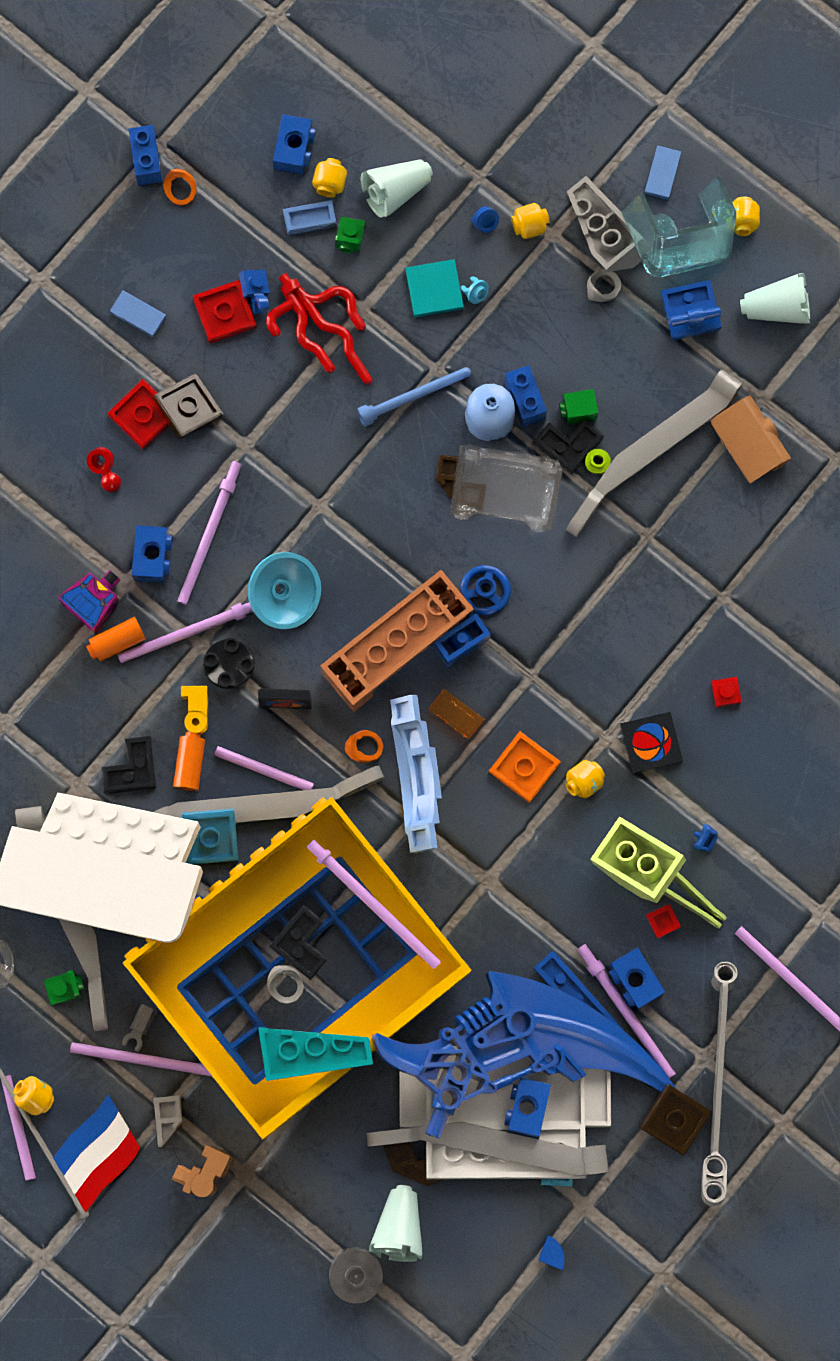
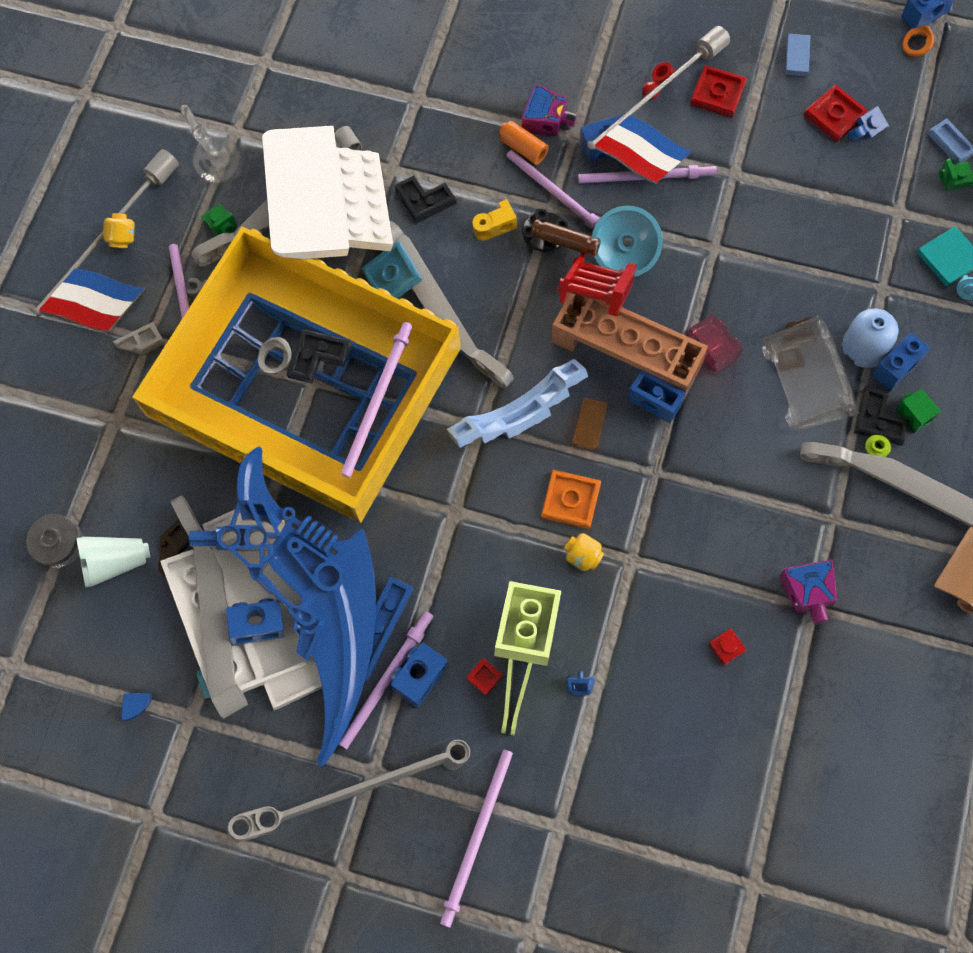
camera: 70 degrees right, 10 degrees down
(19, 1133) = (81, 242): lavender bar -> none
(178, 526) = (640, 144): none -> flag
(188, 406) = (743, 116): tile -> none
(189, 762) = (447, 234): orange brick -> none
(204, 1181) = (100, 383): medium nougat hips -> none
(254, 648) = (565, 237): none -> reddish brown axle
(263, 769) = (469, 293): lavender bar -> none
(285, 698) = (534, 277): black tile -> none
(300, 301) = (879, 160): red plant -> none
(305, 1053) = (220, 398): teal wing -> none
(334, 618) = (598, 283): none -> red fence
(358, 756) = (514, 358): orange piece -> none
(368, 414) = (814, 249): medium blue piece -> none
(428, 557) = (722, 347): none -> clear pink brick
(486, 581) = (714, 392): blue piece -> none
(651, 742) = (646, 599): tile -> none
(675, 1119) = (301, 765): dark brown tile -> none
(707, 591) = (811, 588): none -> magenta torso

